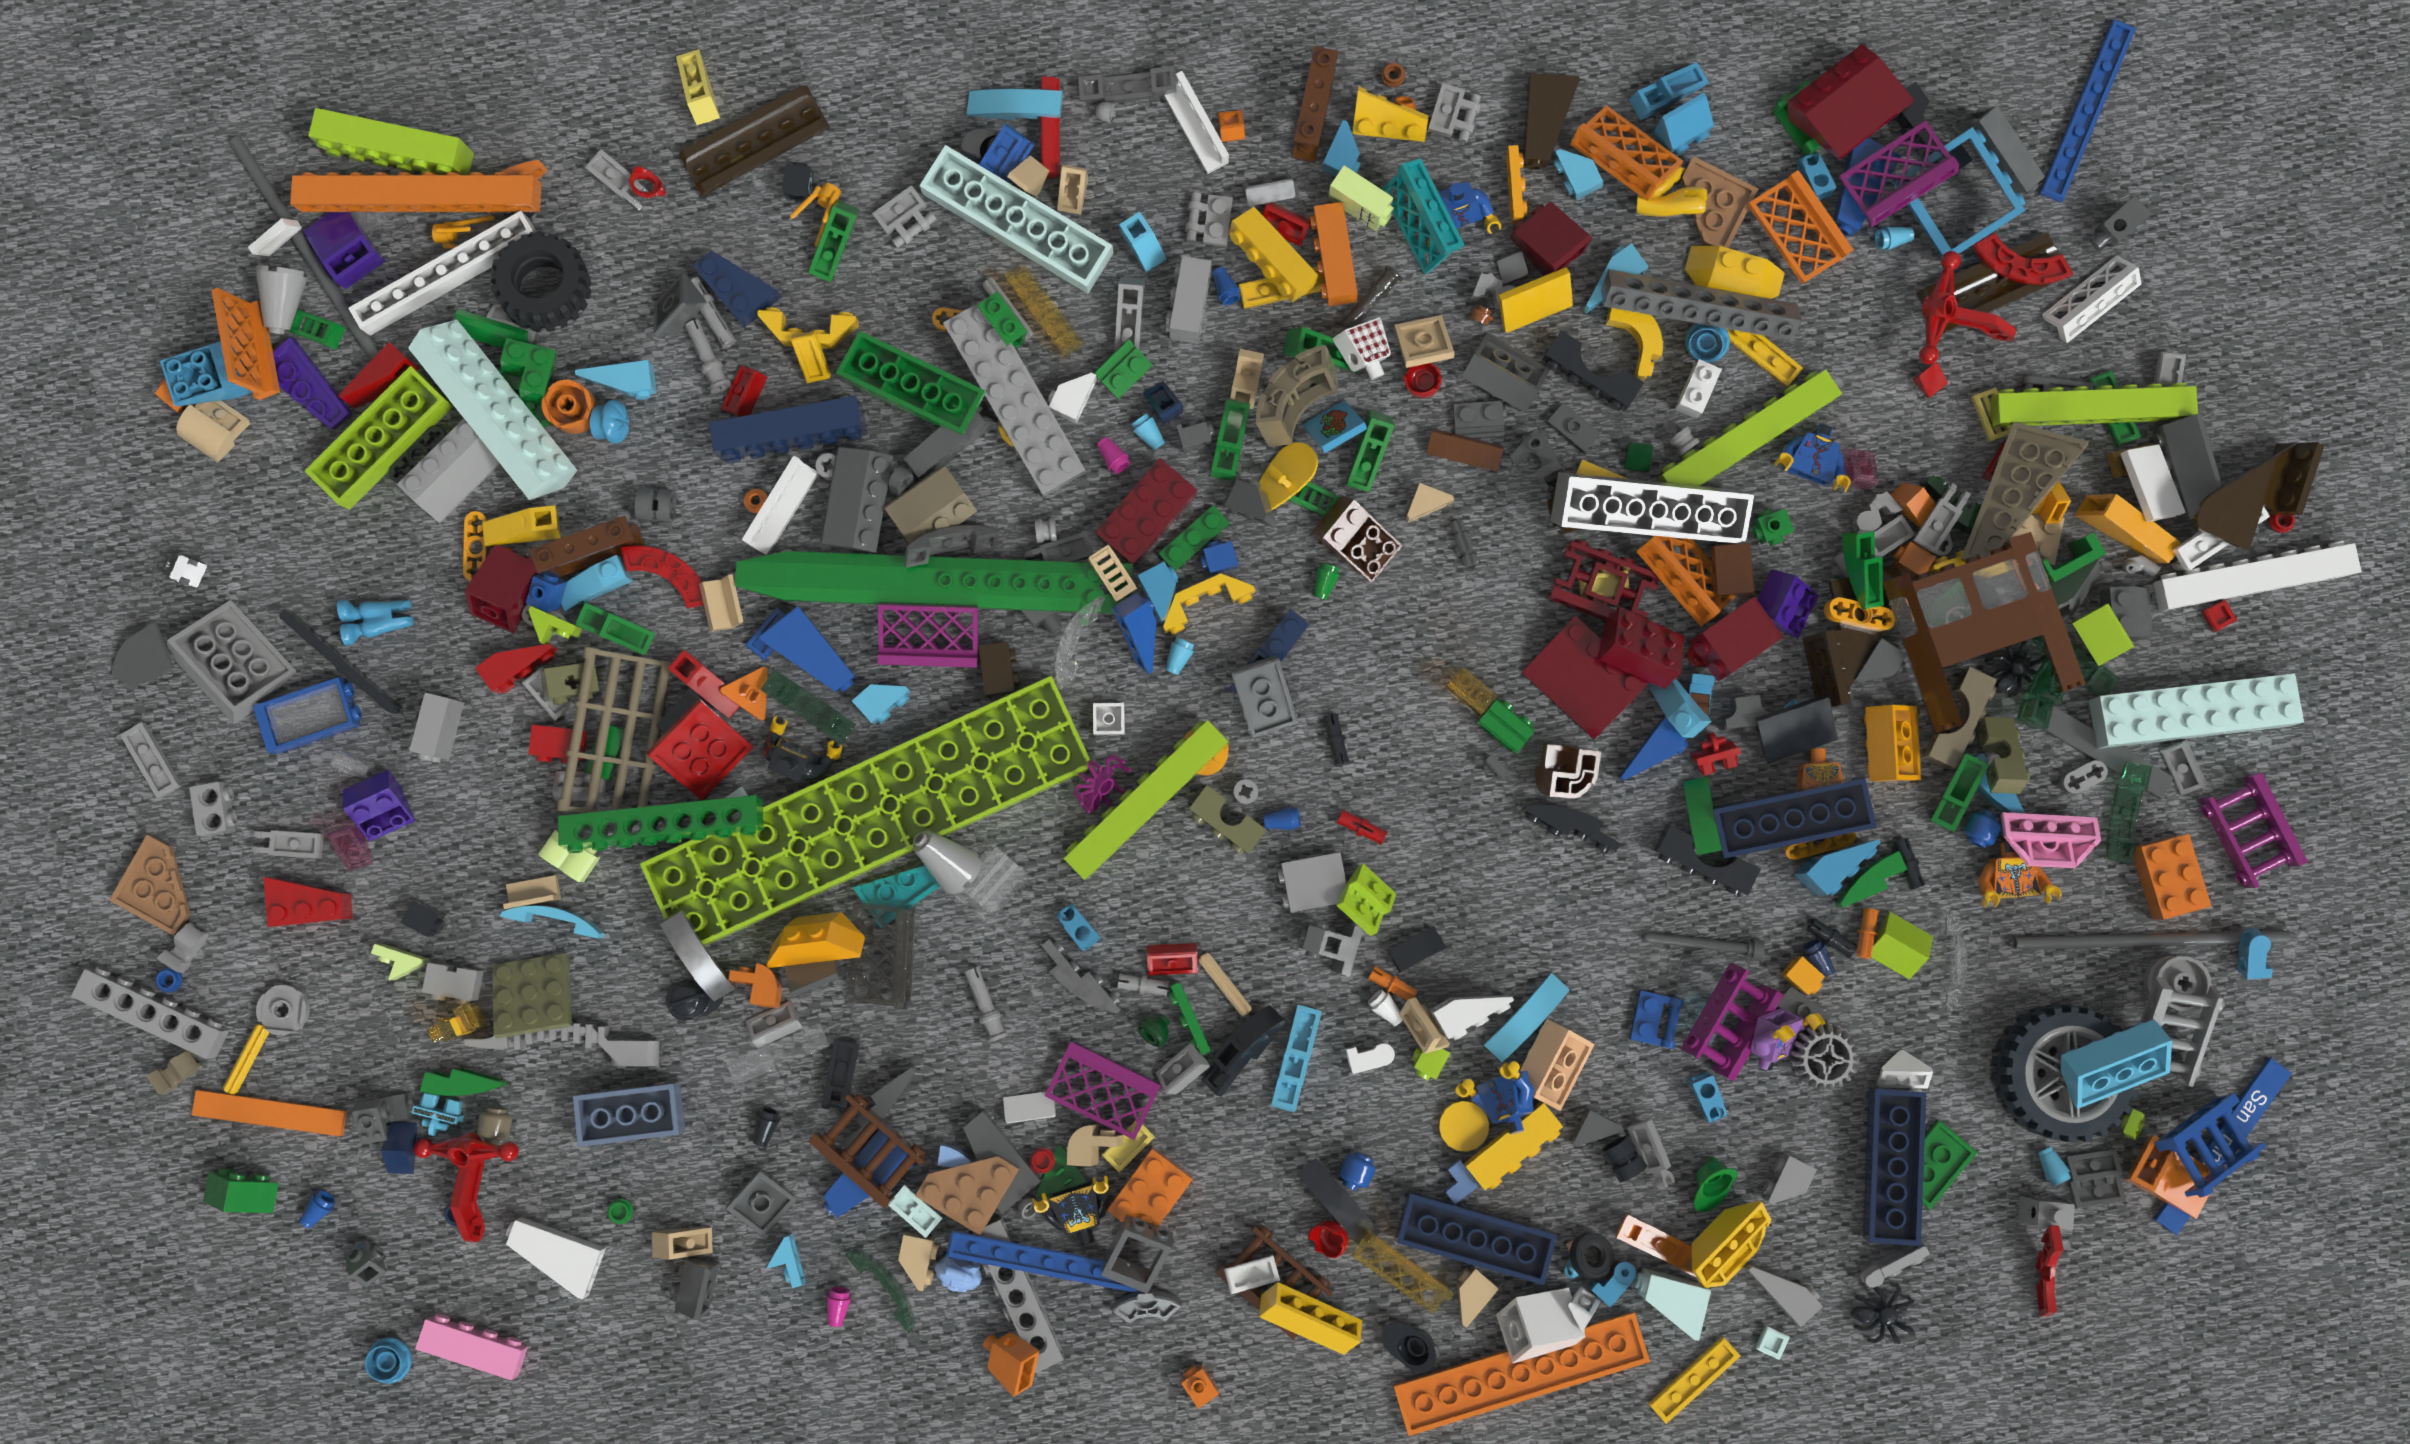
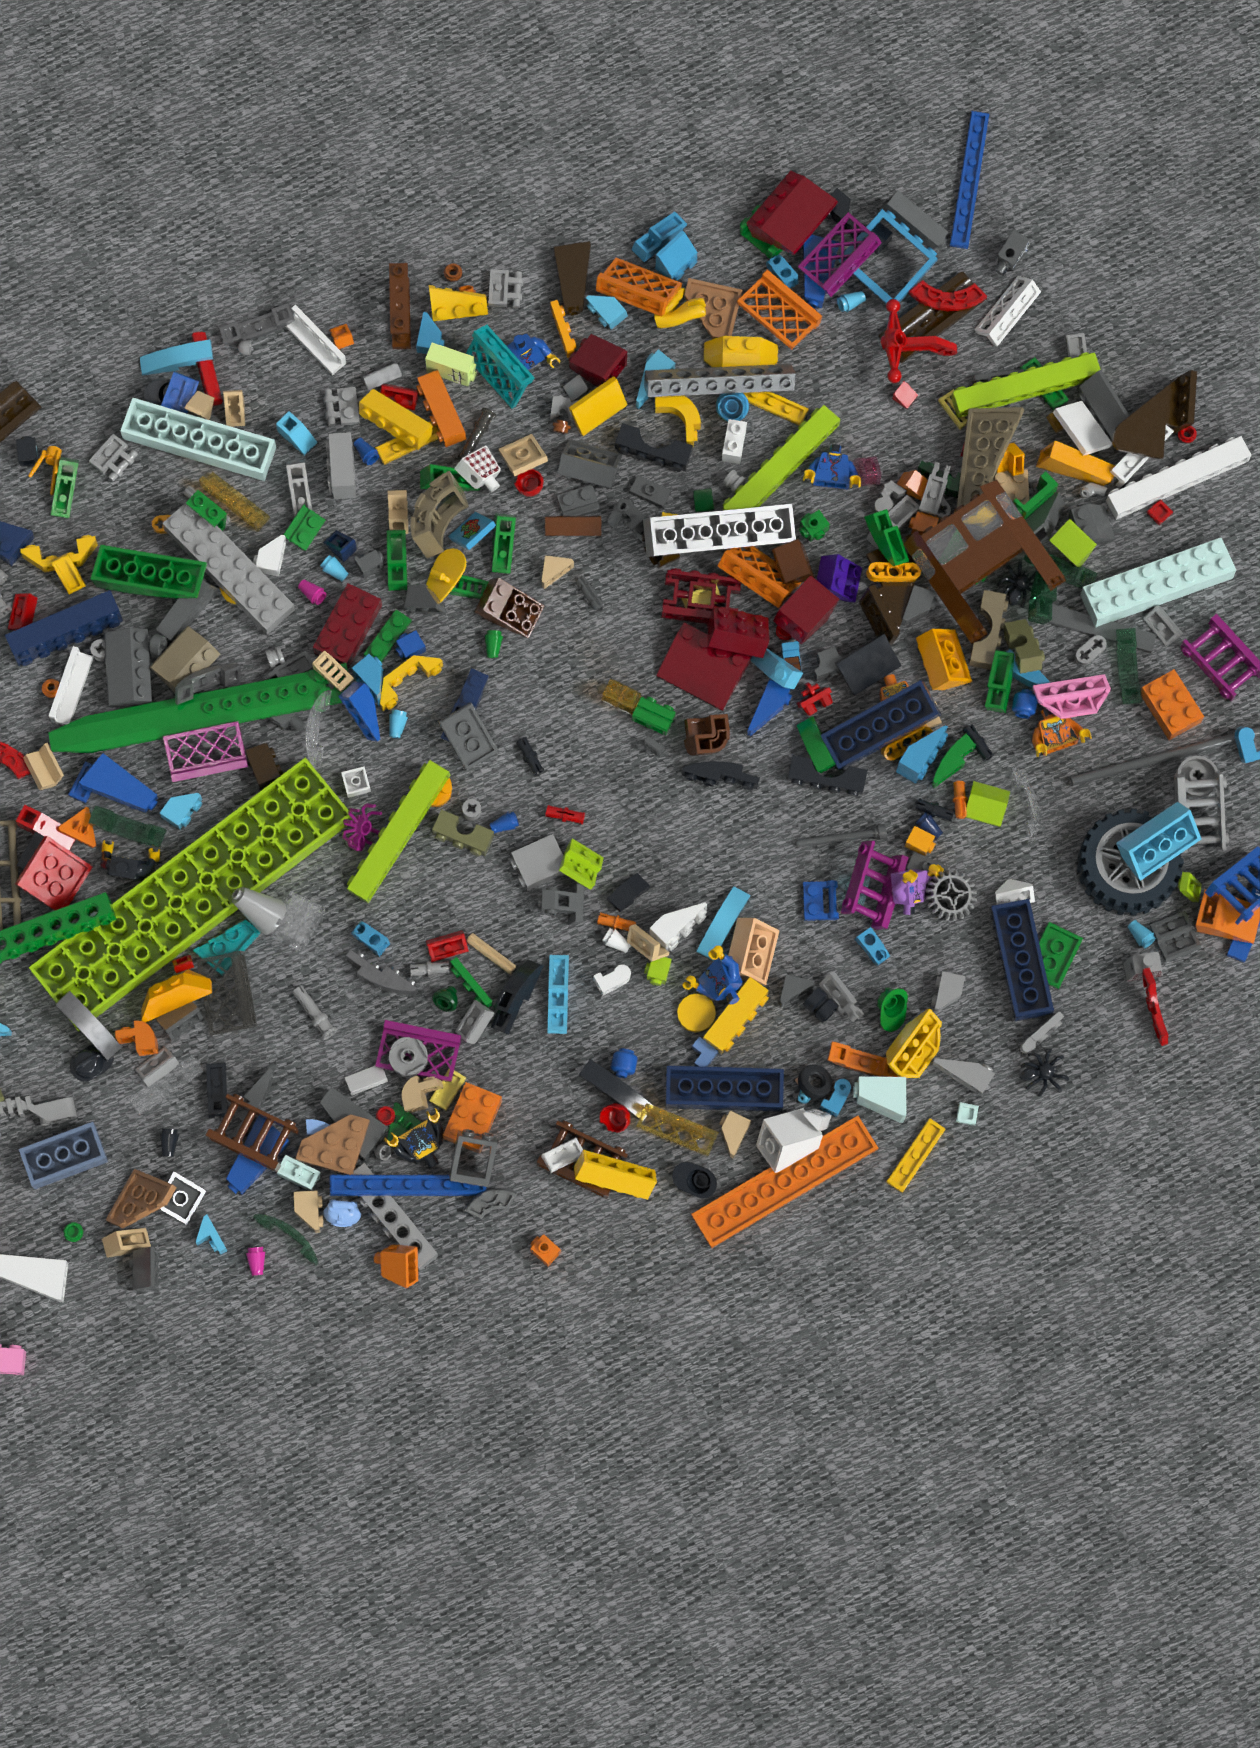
camera: 15 degrees left, 10 degrees down
(710, 1194) = (139, 1198): none -> medium nougat plate
(836, 902) = (183, 964): none -> red tile
(1075, 1090) = (405, 1067): none -> light grey plate

